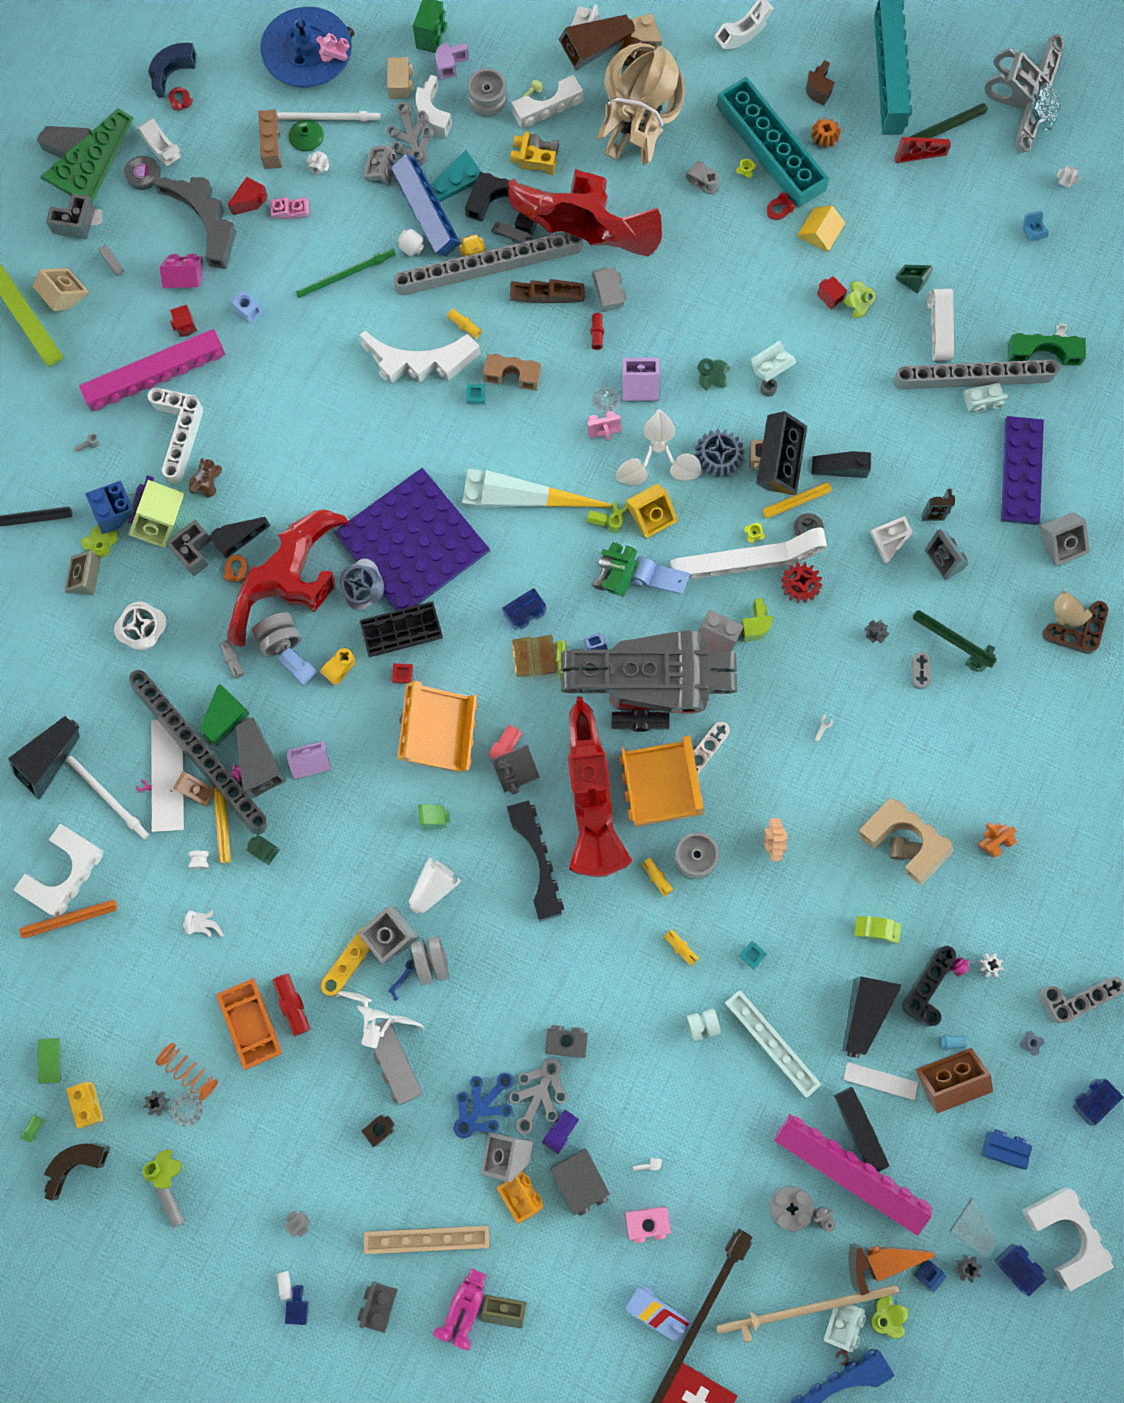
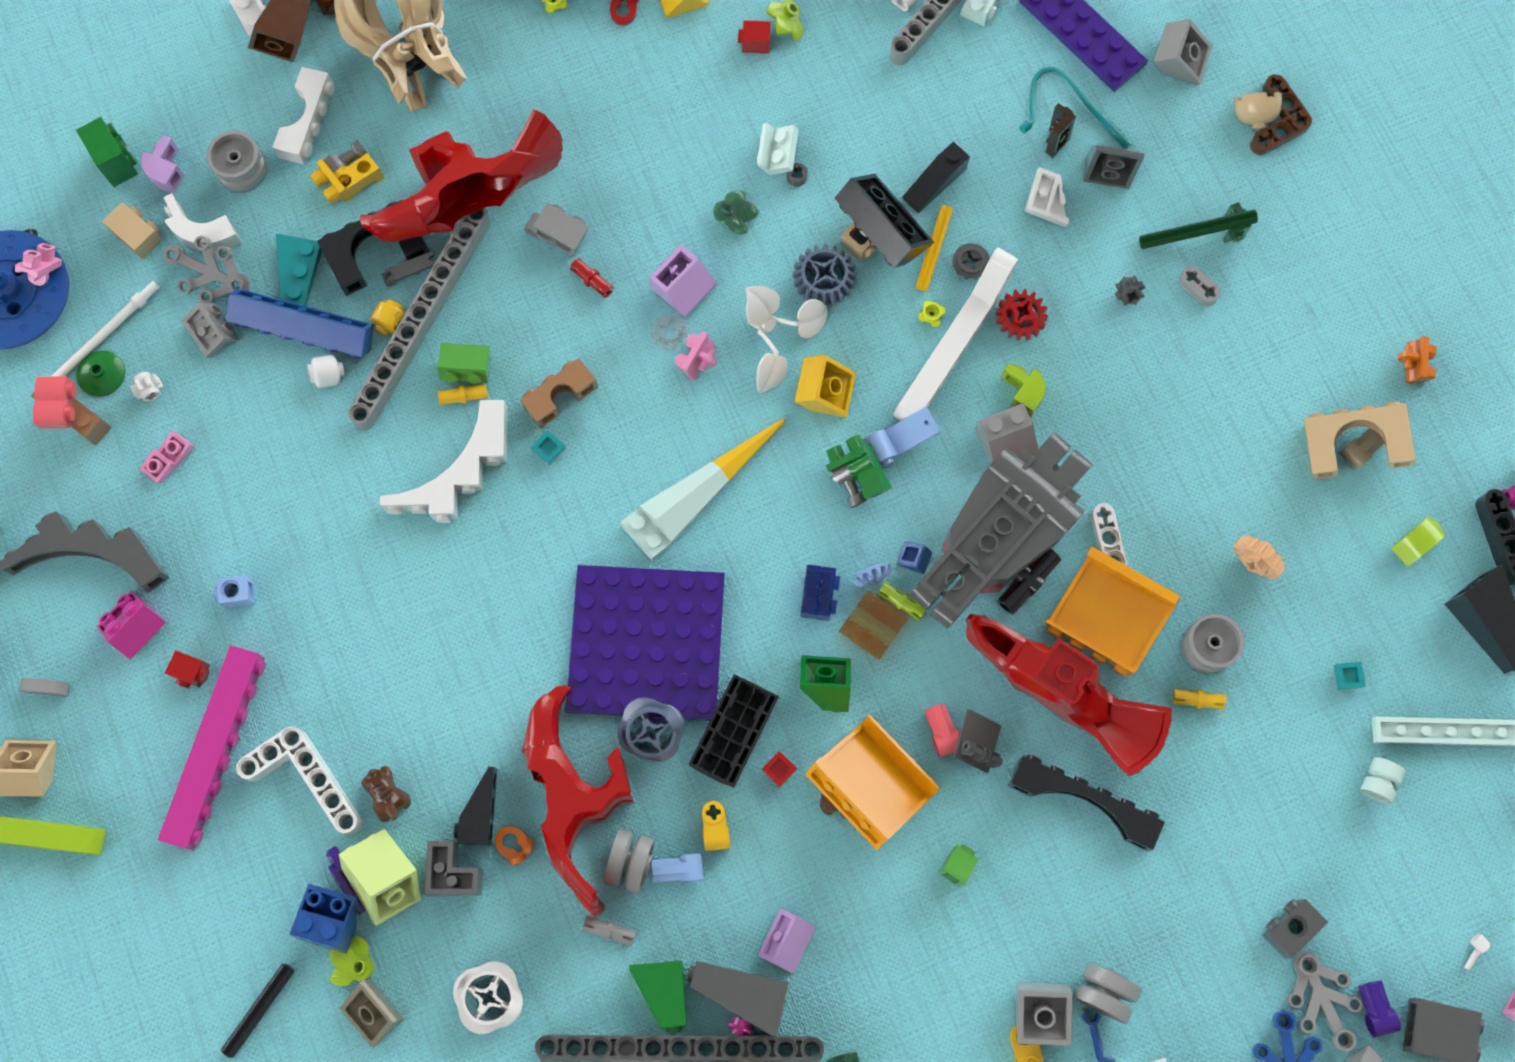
camera: 50 degrees left, 0 degrees up
(90, 437) = (228, 884): light grey hand -> none
(248, 197) = (114, 487): red slope -> none
(262, 123) = (54, 402): none -> coral brick
(376, 259) = (309, 419): green bar -> none
(432, 886) = (1029, 926): white cone -> none
(475, 656) = (827, 681): none -> green slope
(482, 307) = (464, 363): none -> bright green brick
(535, 86) = (274, 112): yellowish green hand -> none
(547, 292) = (505, 288): reddish brown slope -> none
(561, 628) = (872, 574): none -> light blue gear
(613, 523) = (804, 433): lime bar -> none
(681, 947) = (1287, 736): yellow pin -> none
(703, 177) = (525, 46): light grey piece -> none
(823, 727) = (1179, 417): white hand -> none
(975, 525) = (1107, 124): none -> teal piece

